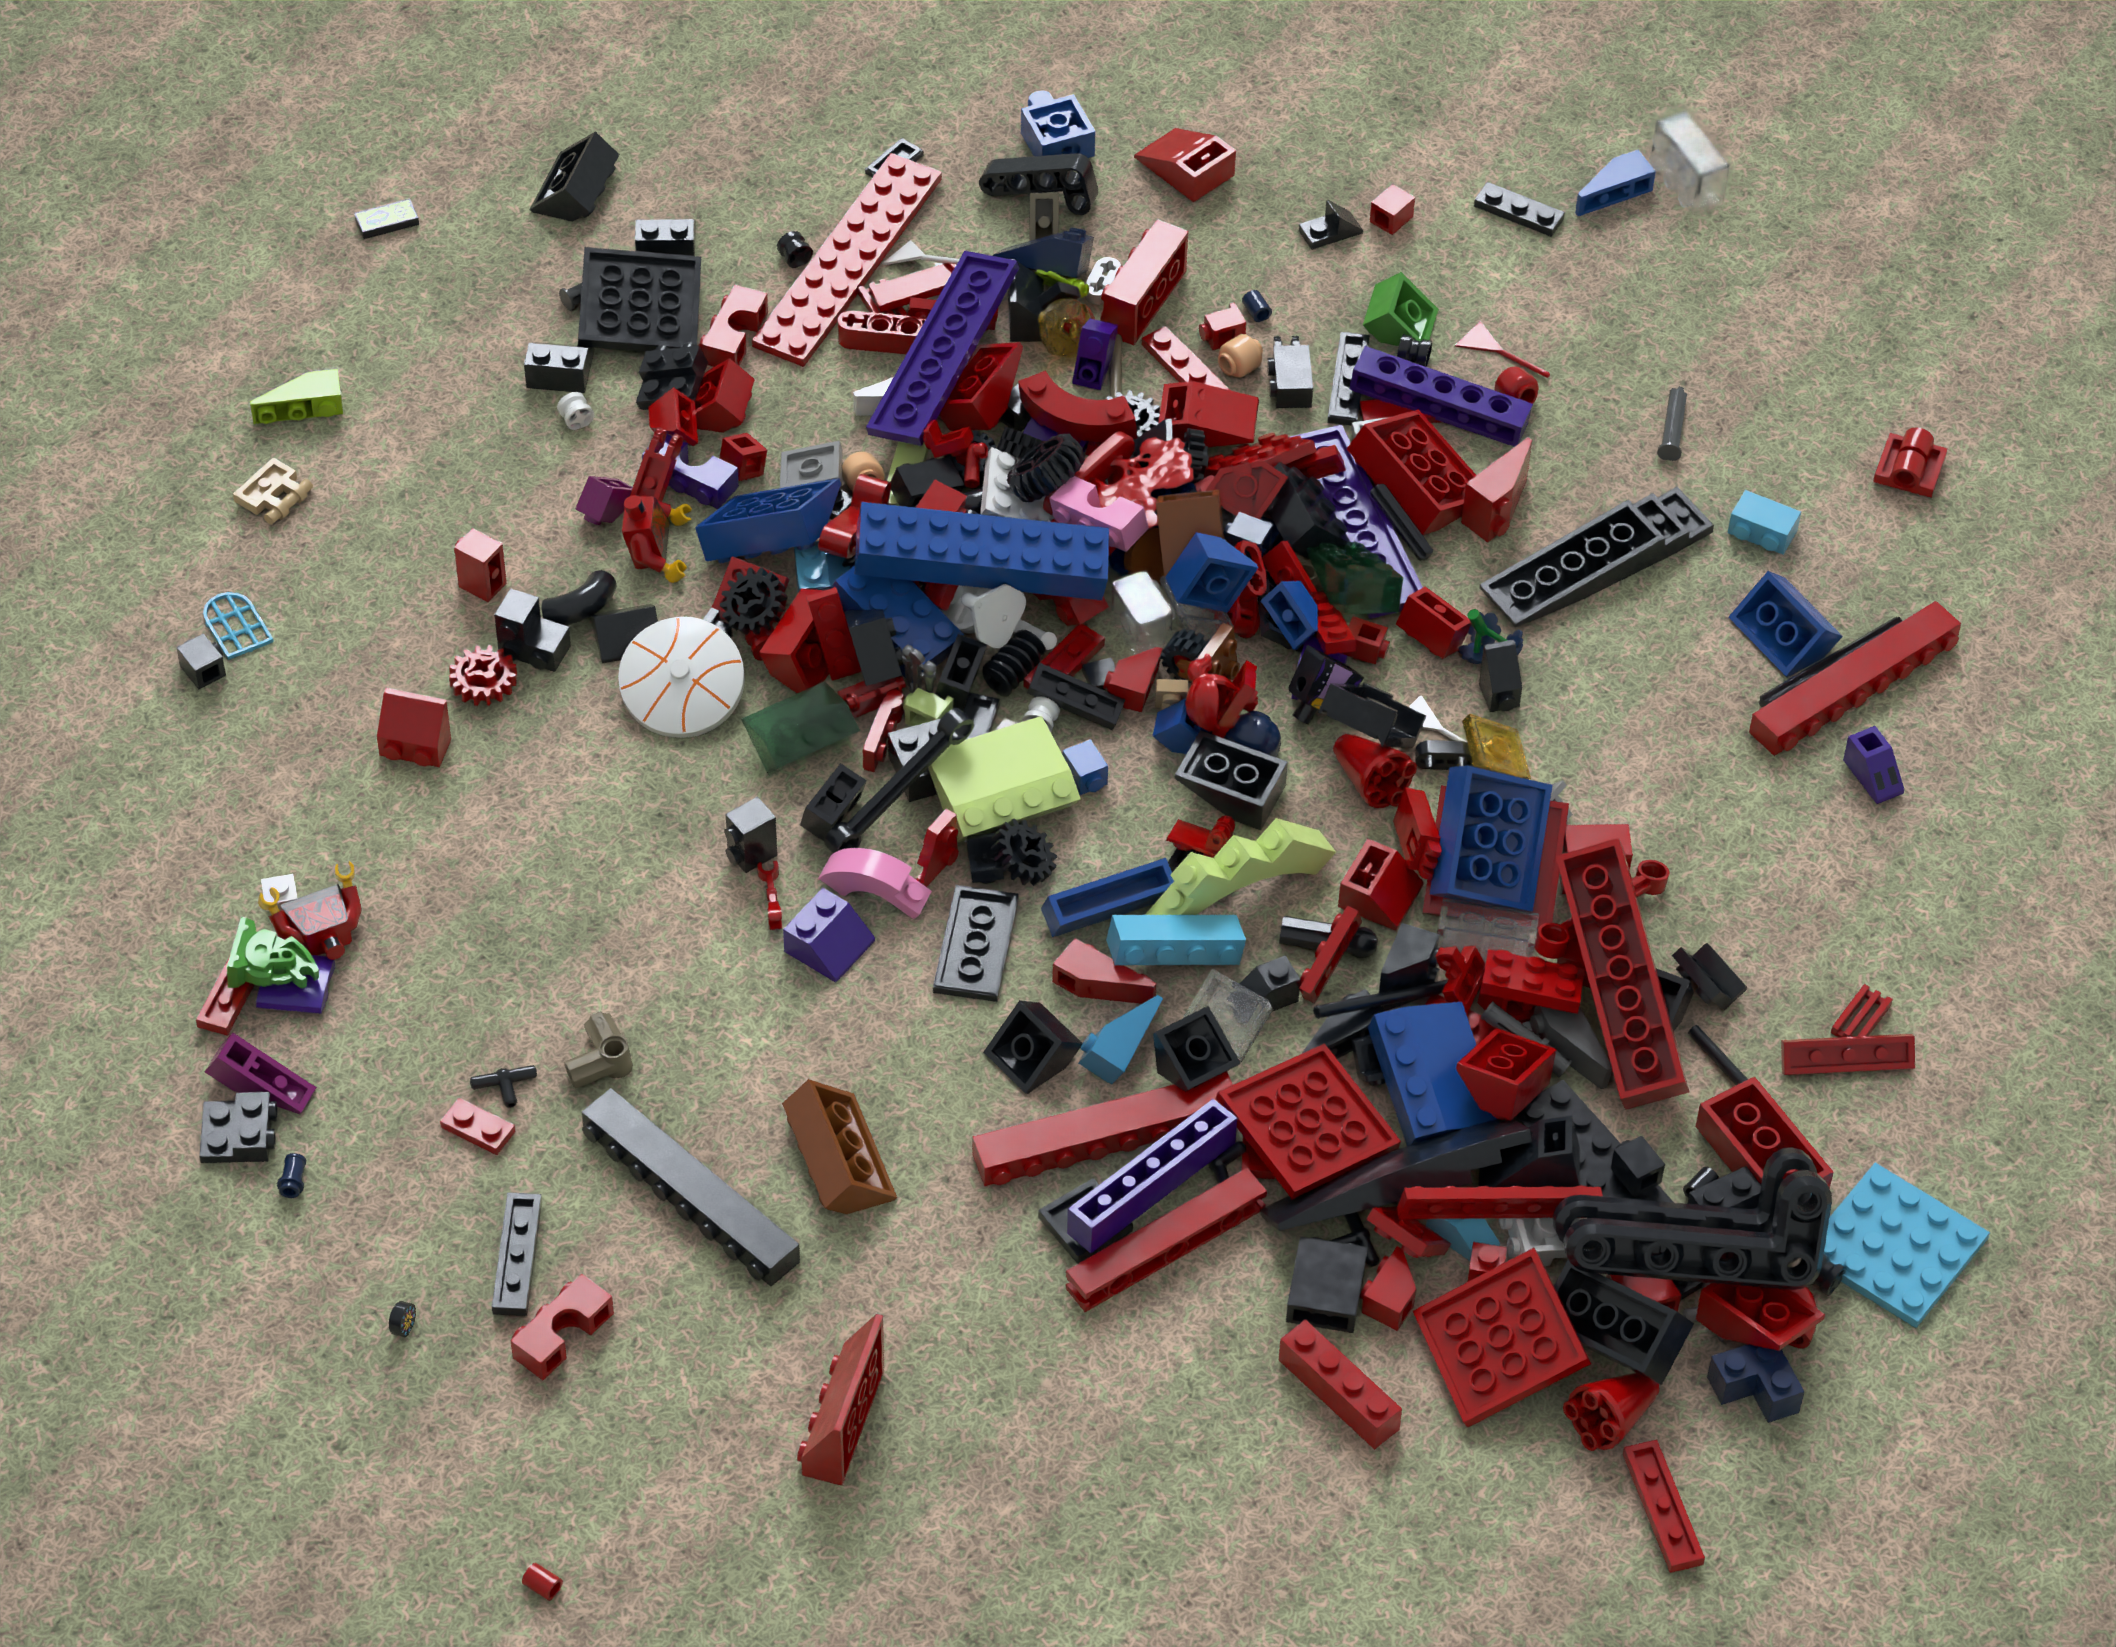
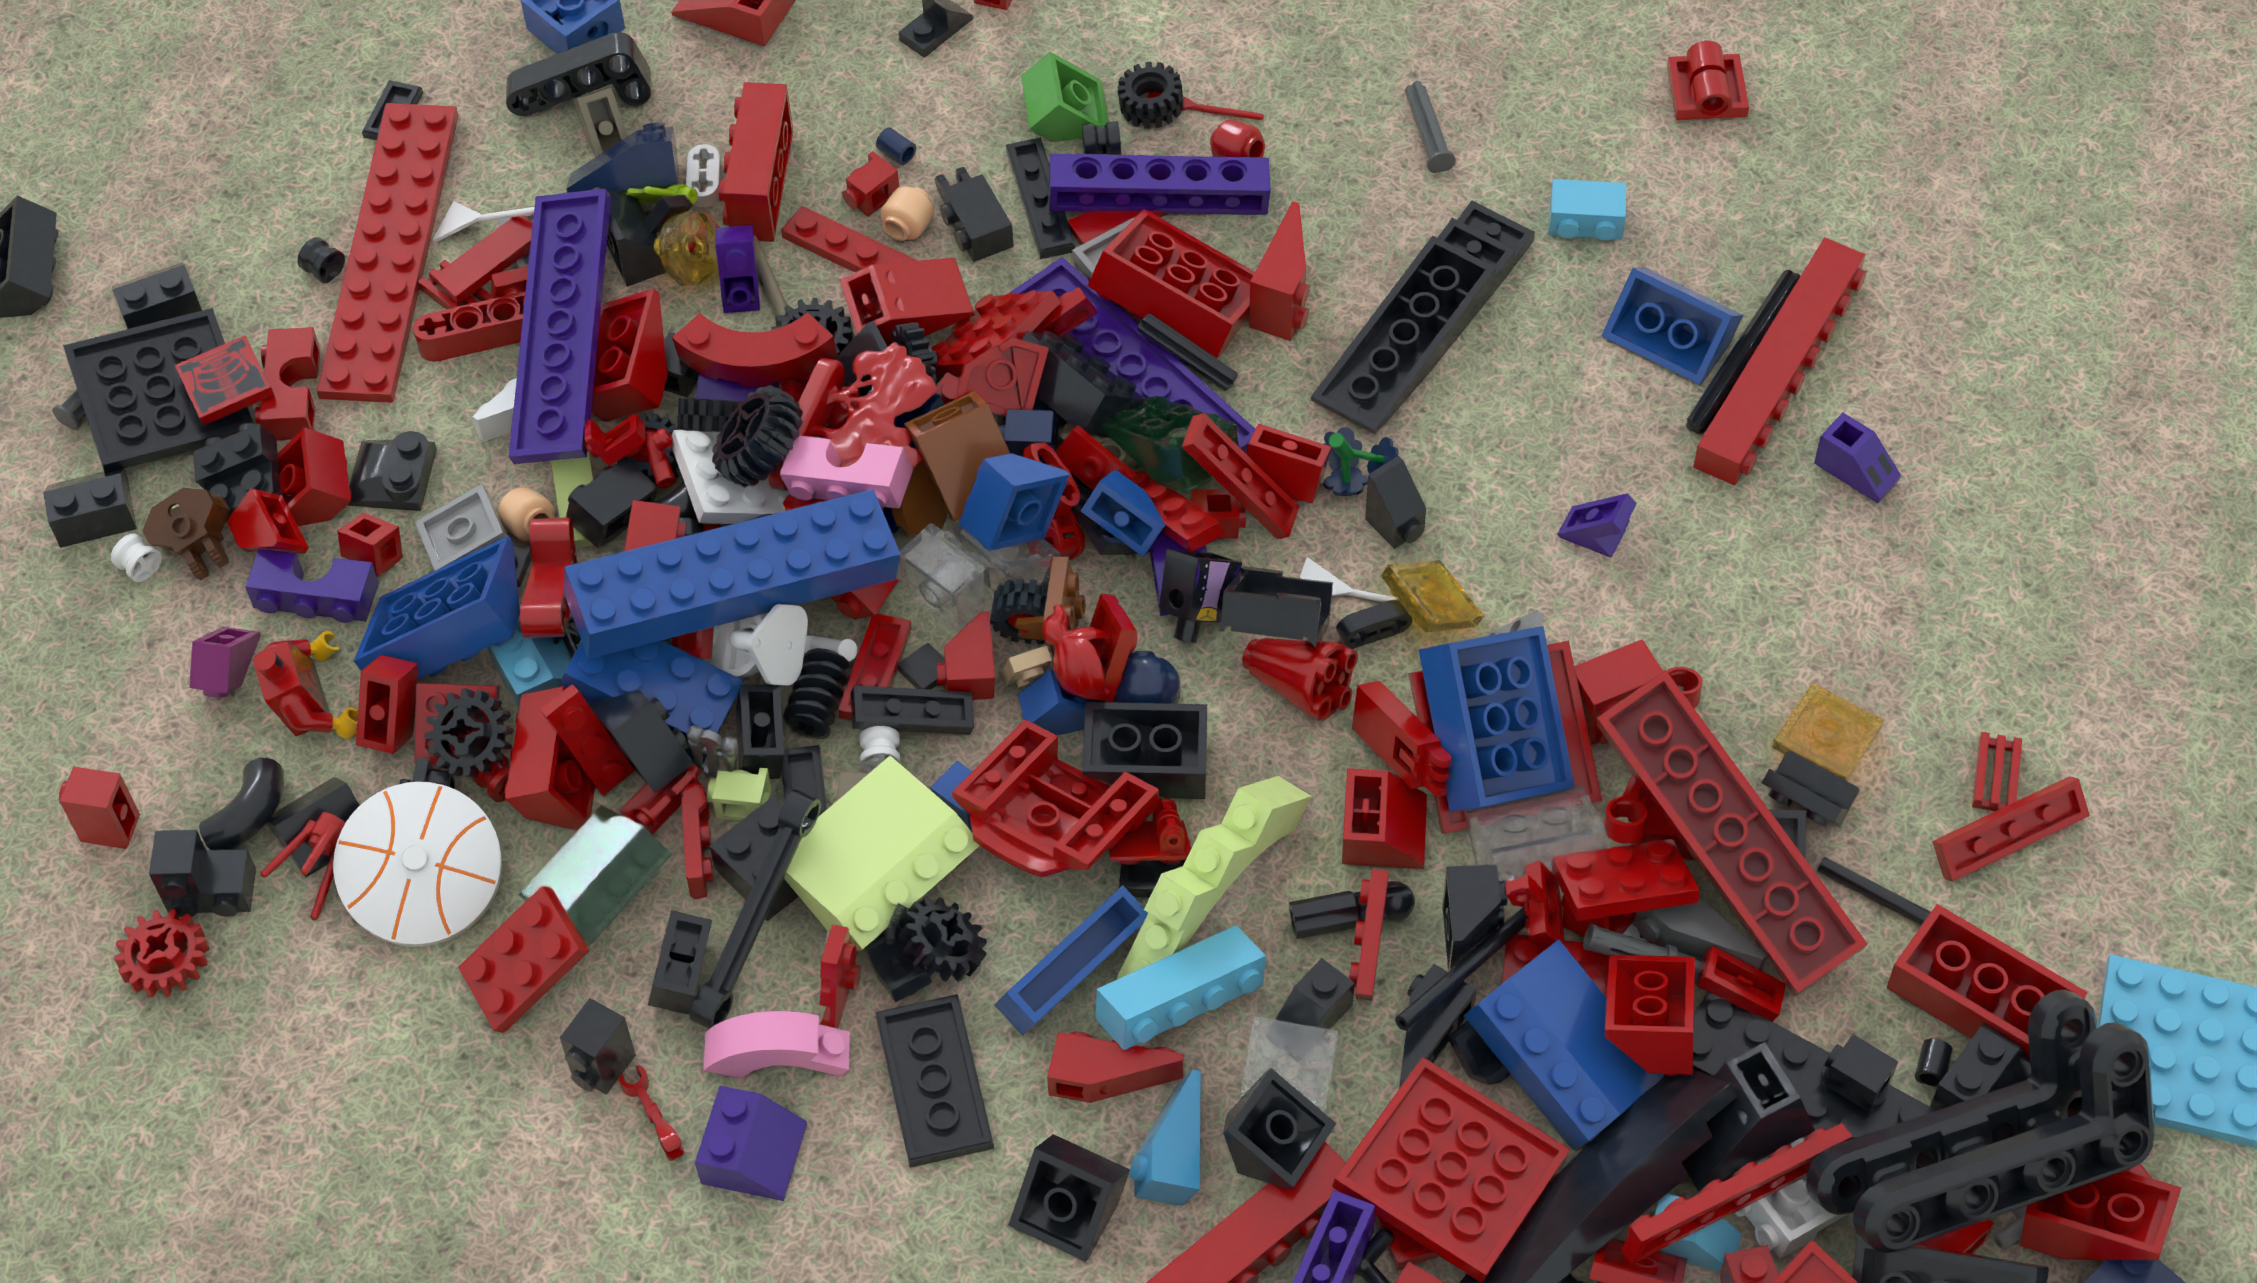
camera: 20 degrees left, 5 degrees up
(413, 728) = (102, 1063): red slope -> none
(621, 403) = (190, 527): none -> reddish brown hinge
(621, 637) = (323, 840): none -> red plant
(657, 468) = (271, 601): red hinge -> none
(687, 308) = (224, 380): none -> tile
(705, 564) = (386, 704): none -> red brick
(725, 762) = (523, 959): none -> red plate
(782, 414) = (393, 472): none -> black slope
(988, 831) = (892, 932): none -> black leg
(1134, 790) = (1043, 810): none -> red slope
(1390, 616) = (1240, 476): none -> red plate
(1466, 342) = (1150, 109): none -> black tyre
(1581, 1083) = (1740, 989): none -> red tile
(1651, 745) = (1598, 523): none -> dark purple slope
(1747, 943) = (1828, 731): none -> clear yellow plate

